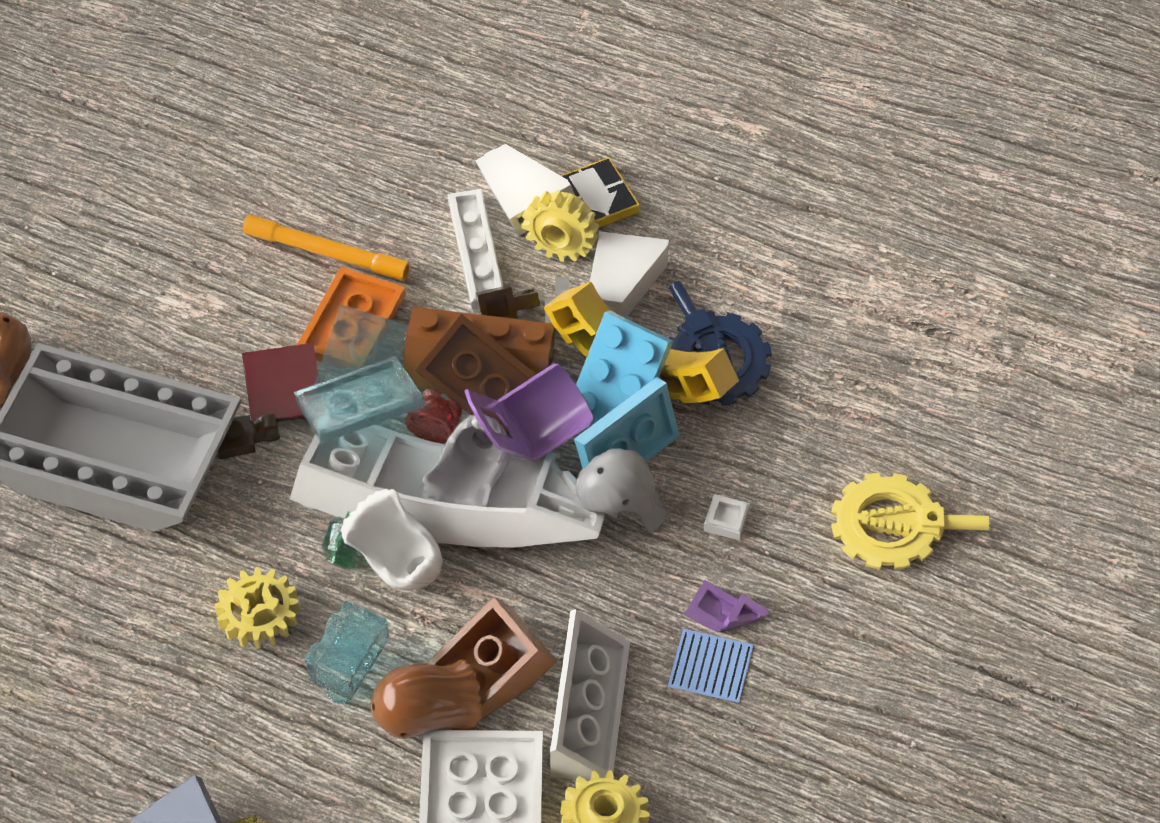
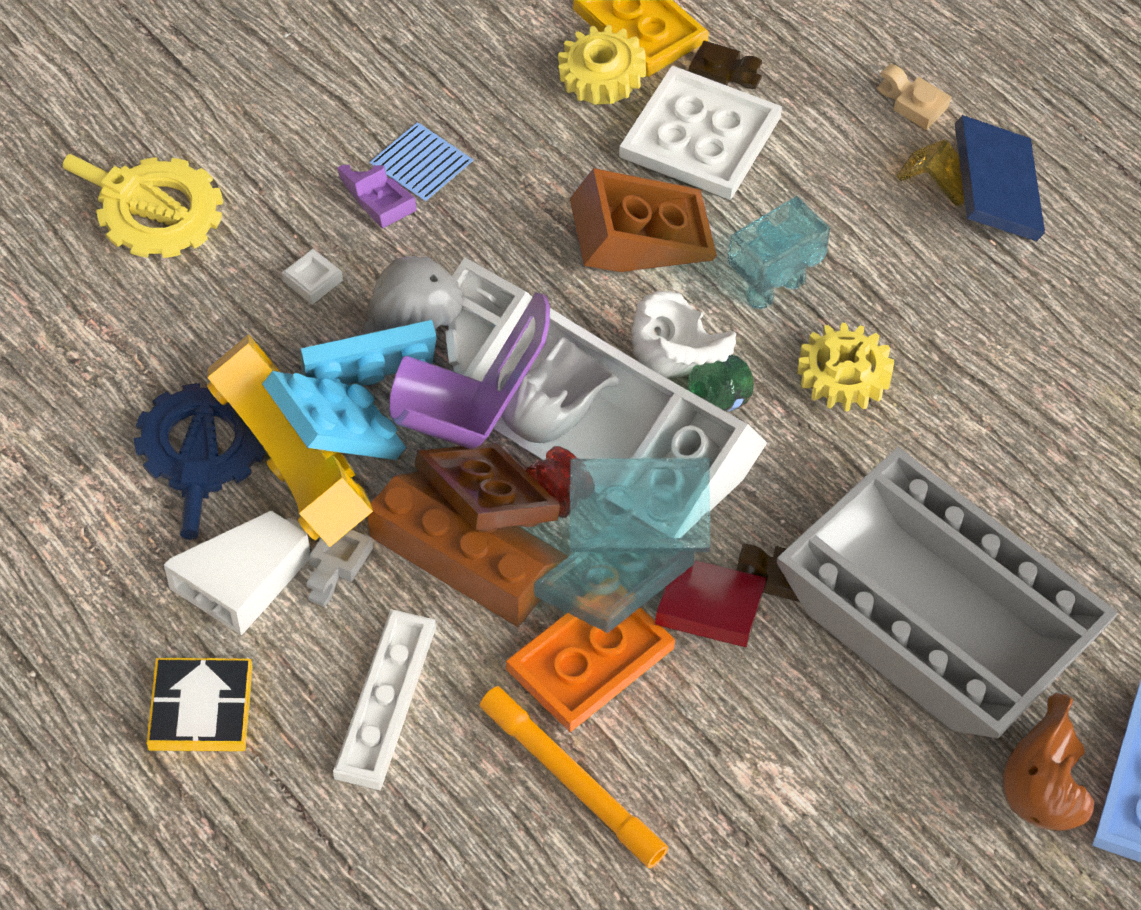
camera: 155 degrees left, 0 degrees up
(427, 699) = (720, 193): dark orange piece -> none
(503, 303) = (407, 593): dark brown plate -> none
(517, 181) = (284, 729): white slope -> none
(561, 225) = (278, 634): light yellow gear -> none
(588, 700) = (563, 161): white slope -> none

